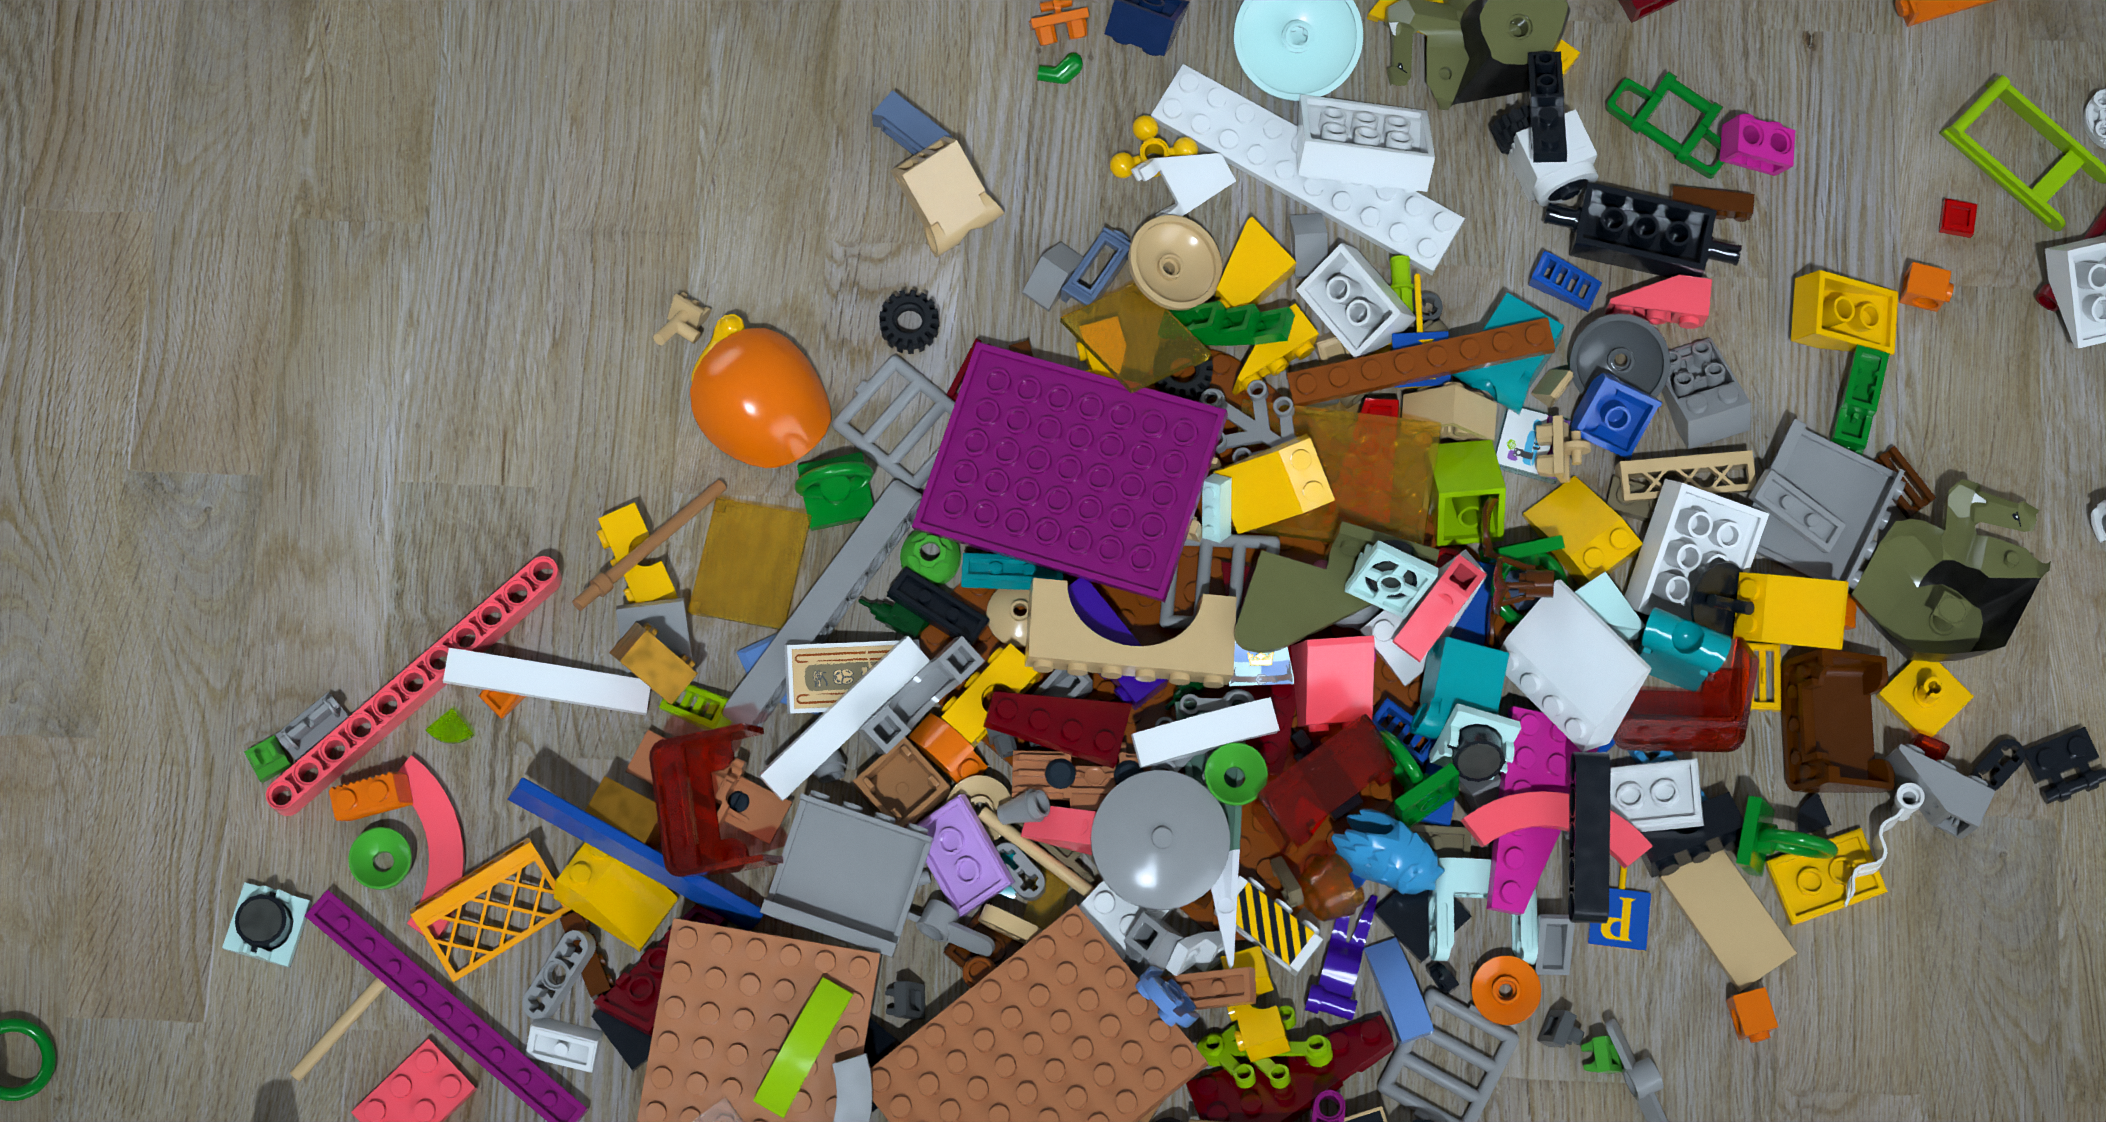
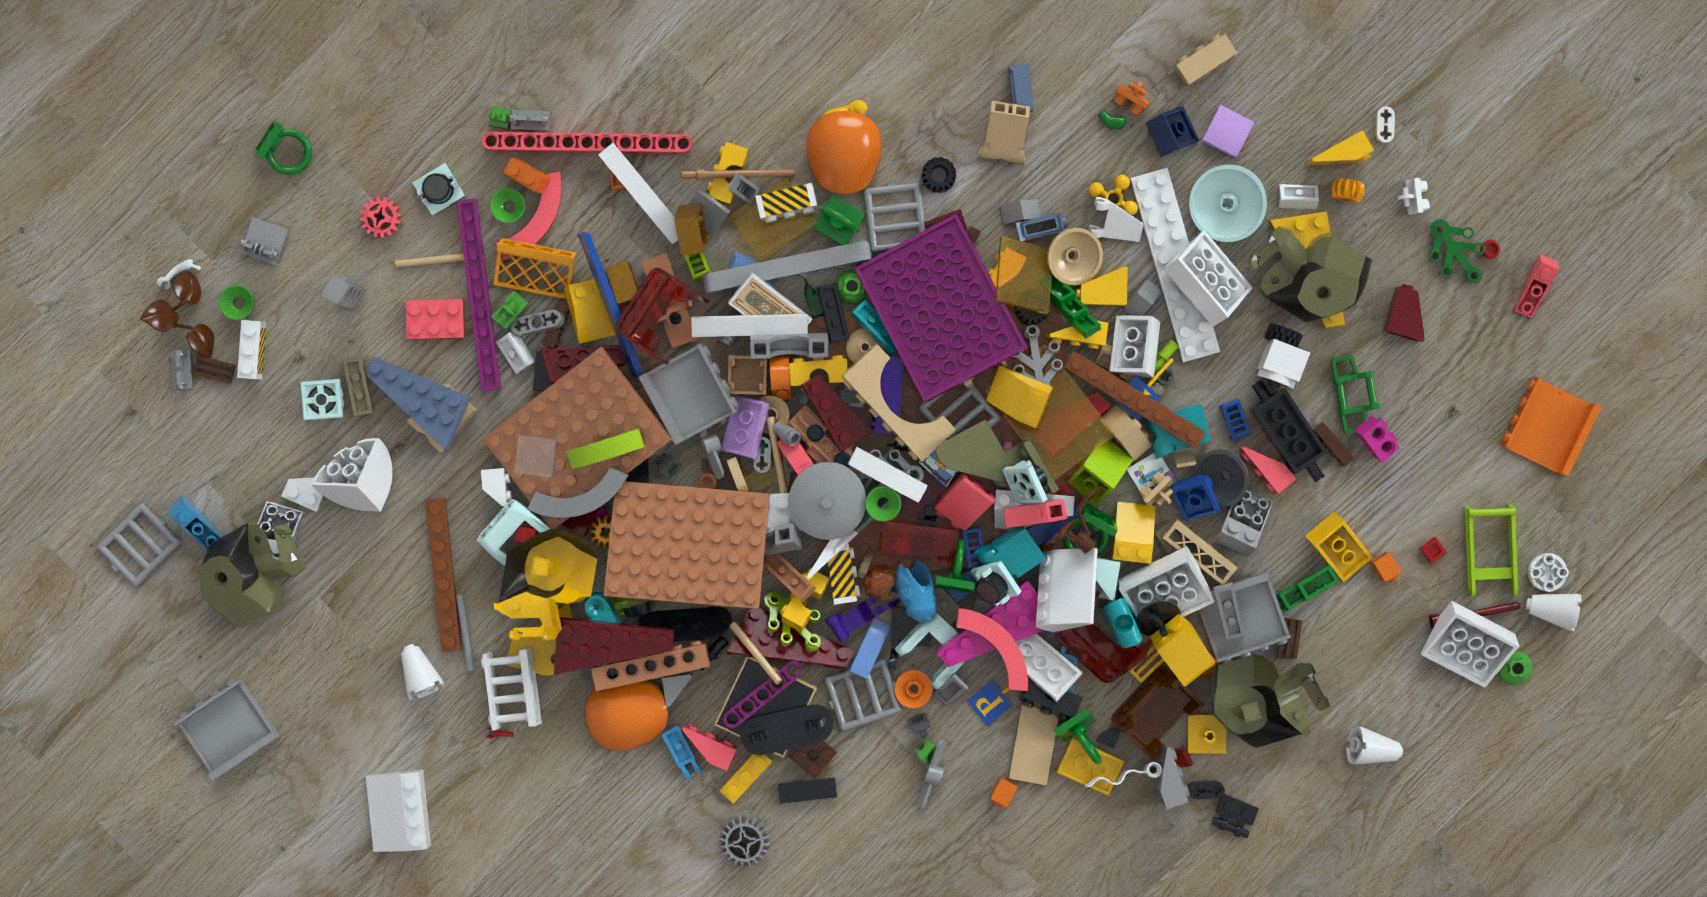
camera: 45 degrees right, 15 degrees up
(232, 1025) = (382, 210): none -> coral gear
(450, 729) = (586, 174): clear neon green tile -> none
(506, 991) = (510, 310): none -> bright green hips
(675, 556) = (743, 188): none -> light grey slope
(684, 319) = (846, 83): tan arm -> none
(747, 523) = (786, 203): none -> brick
(1169, 997) = (769, 567): medium blue plate -> none
(1198, 950) = (805, 558): white slope -> none
(1216, 507) = (986, 382): light aqua piece -> none
(1546, 107) = (1296, 341): black slope -> none
(1589, 837) = (1002, 664): black beam -> none

